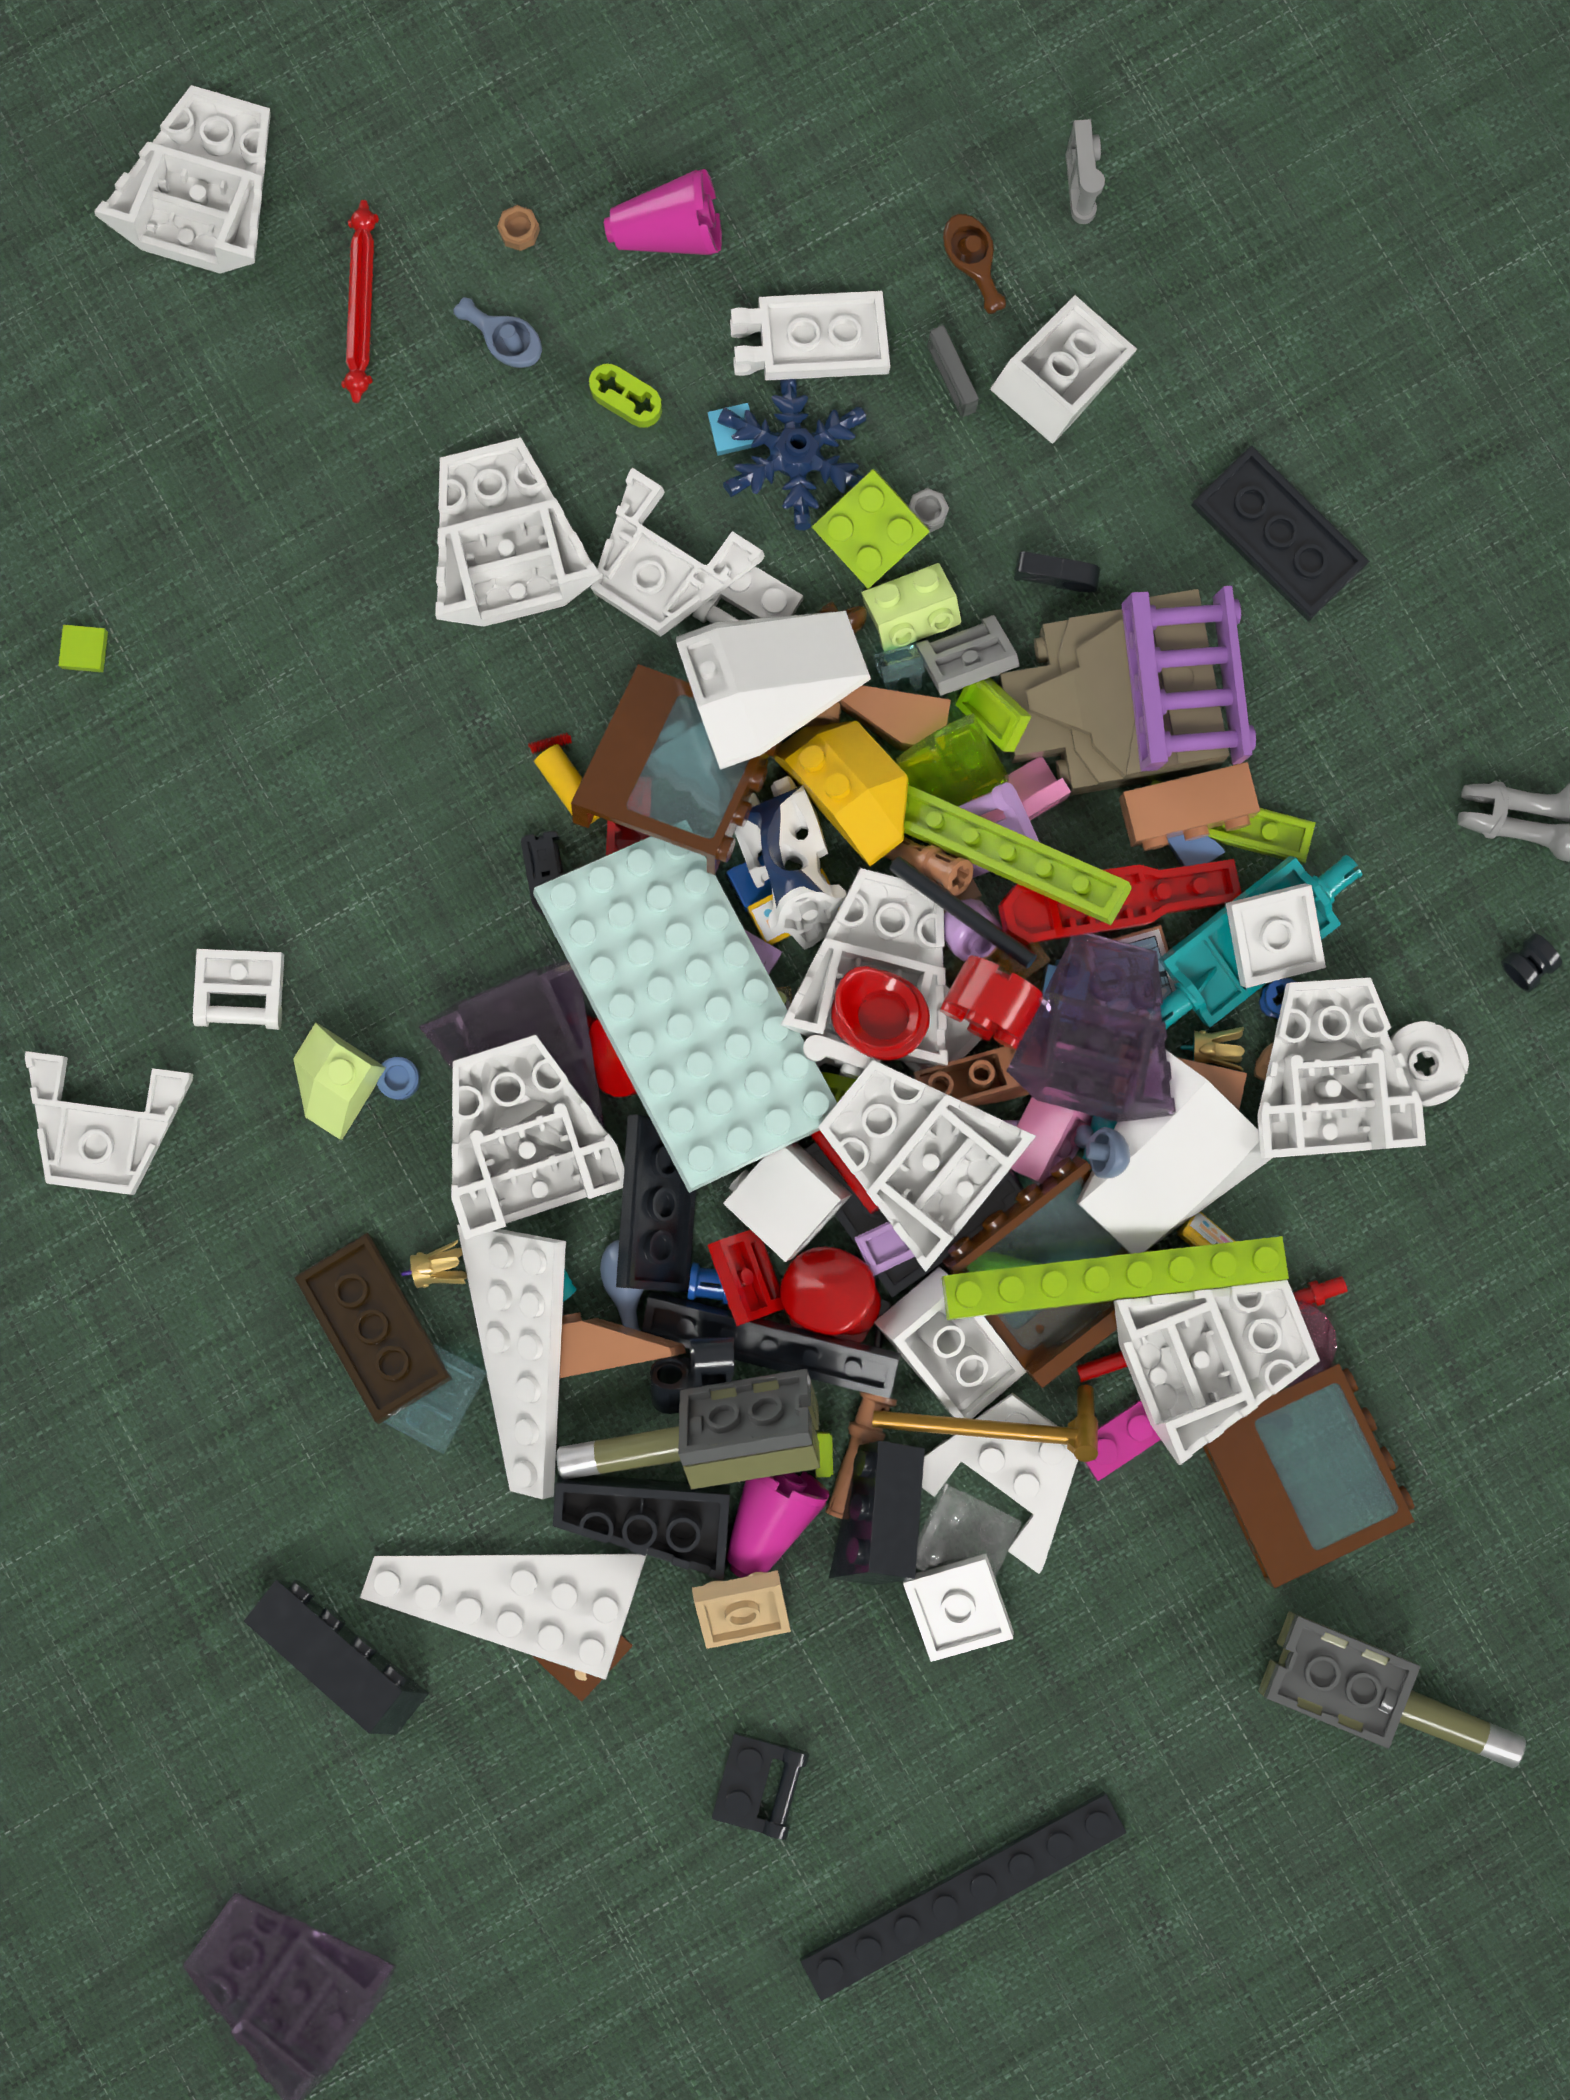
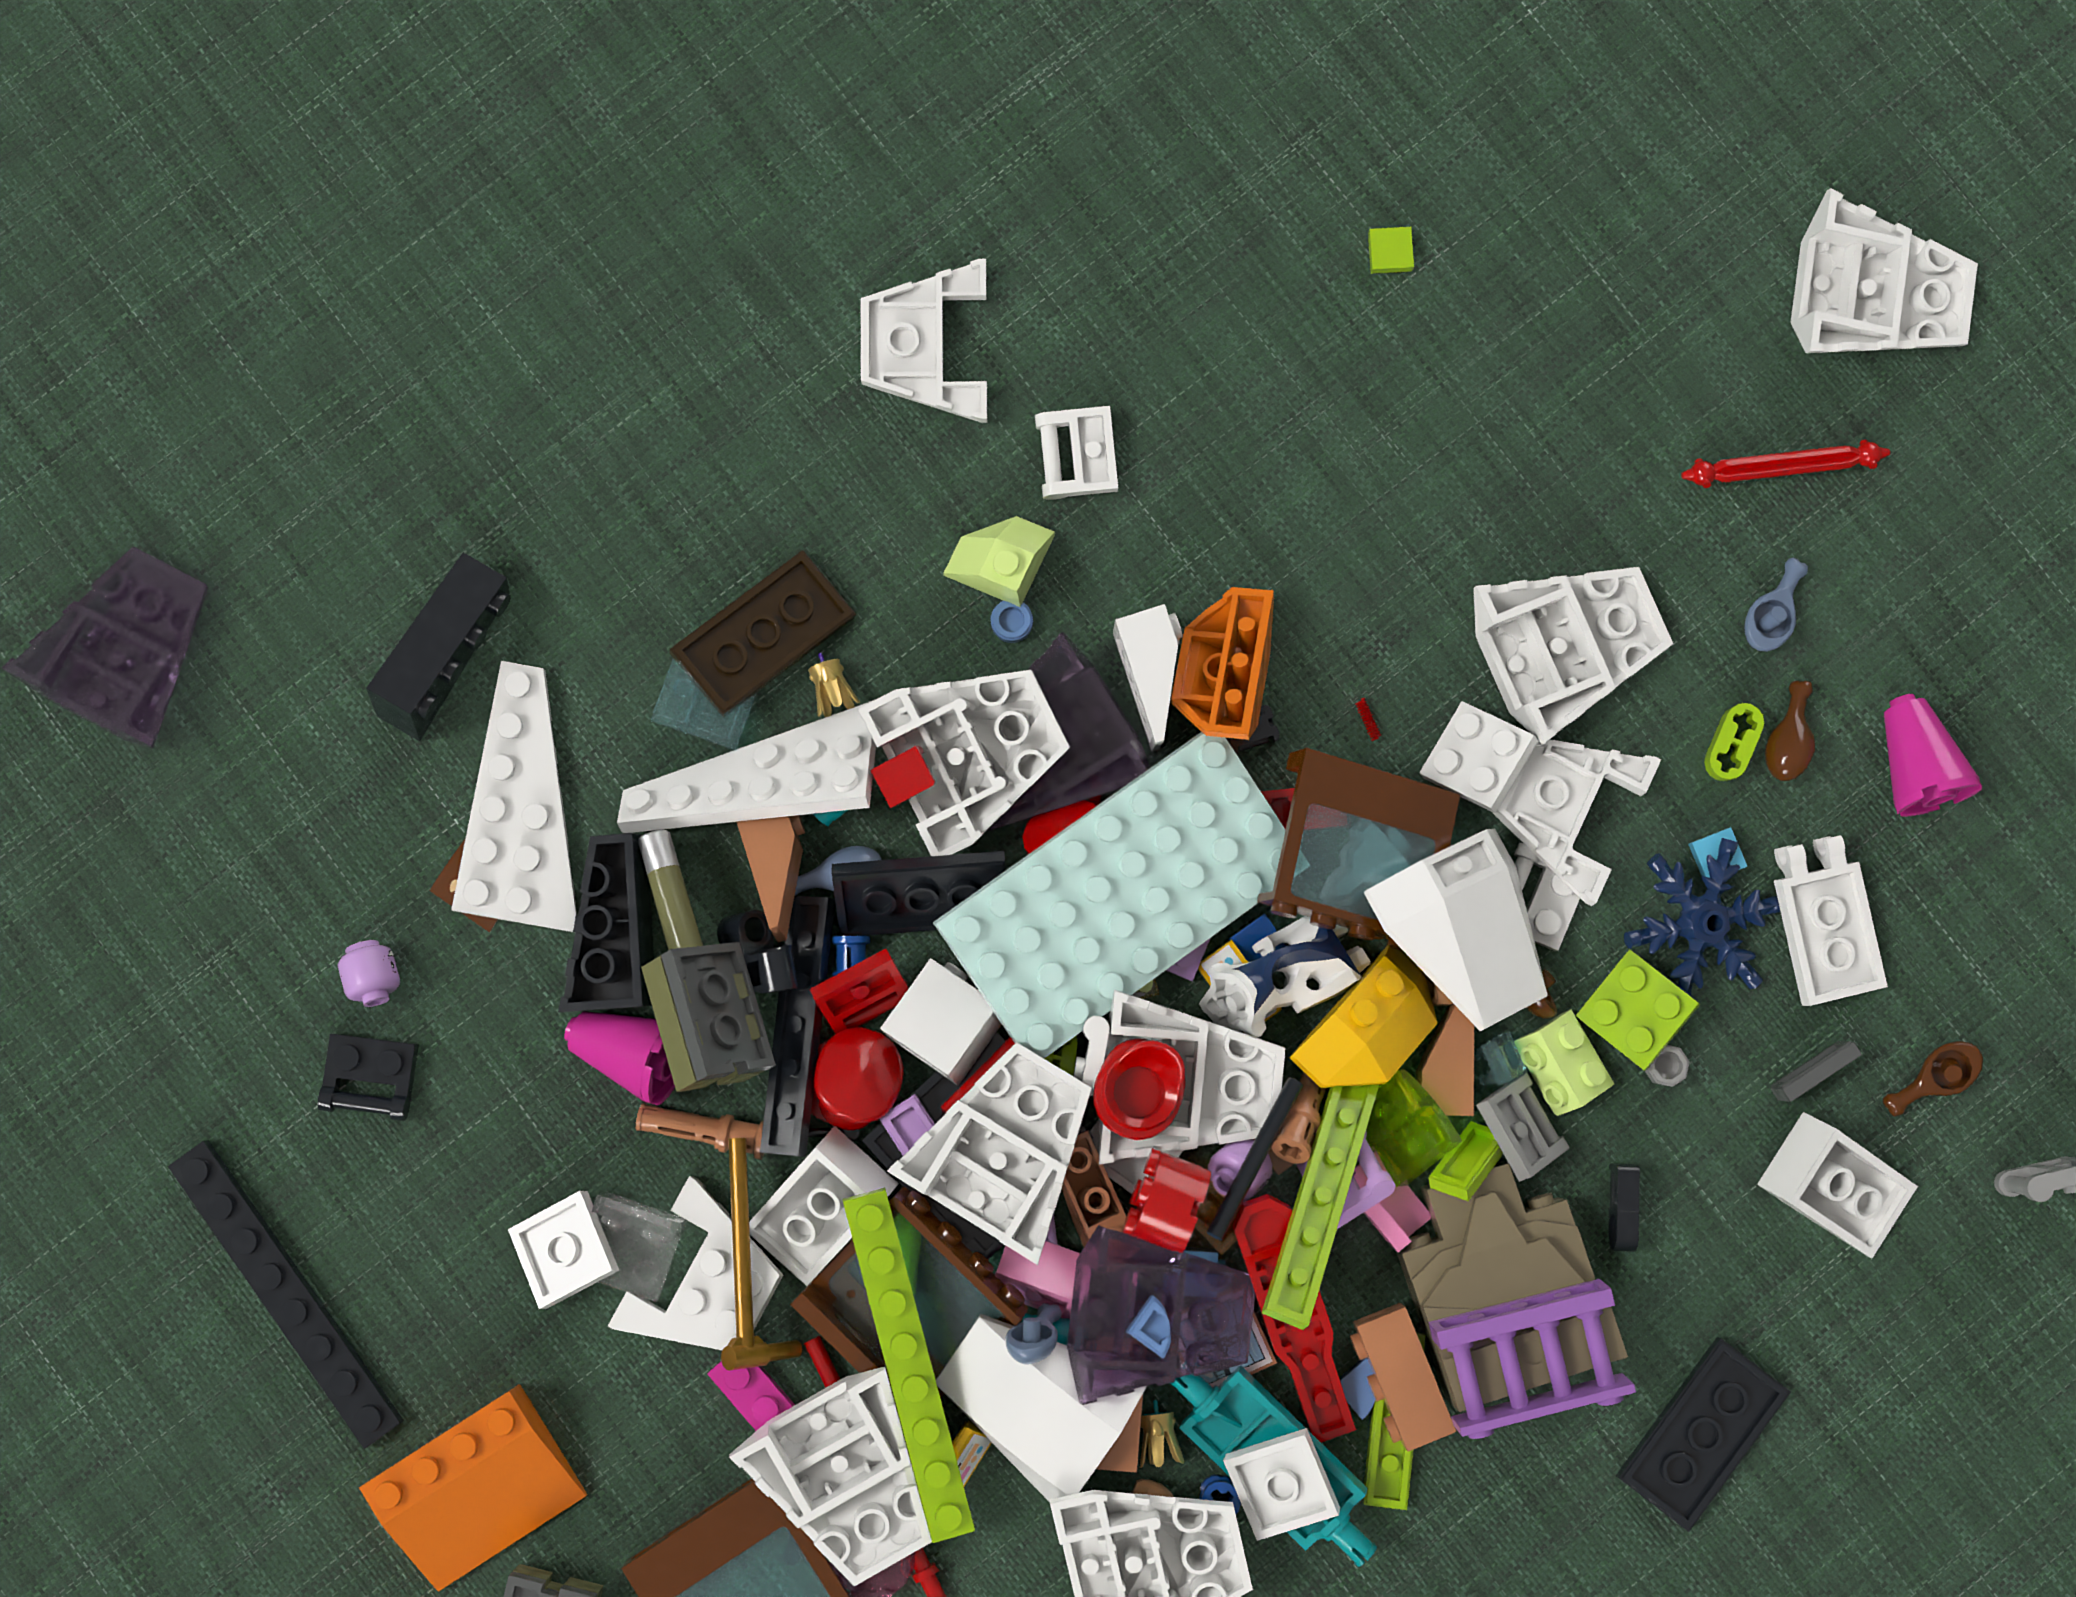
camera: 85 degrees right, 0 degrees up
(458, 946) = (1149, 653): none -> white slope
(475, 871) = (1226, 664): none -> orange wedge
(518, 228) = (1888, 609): medium nougat tile -> none
(539, 1203) = (903, 776): none -> red panel
(560, 774) = (1338, 733): yellow cylinder -> none
(603, 641) = (1478, 756): none -> white plate
(633, 340) = (1792, 741): none -> reddish brown piece
(656, 1771) = (368, 973): none -> lavender head
(741, 1609) = (534, 1033): tan plate -> none
(826, 1455) = (705, 1094): lime tile -> none
(881, 1516) = (642, 1160): black wedge -> none
(1110, 1035) = (1152, 1327): none -> medium blue tile
(1179, 1726) = (474, 1489): none -> orange slope

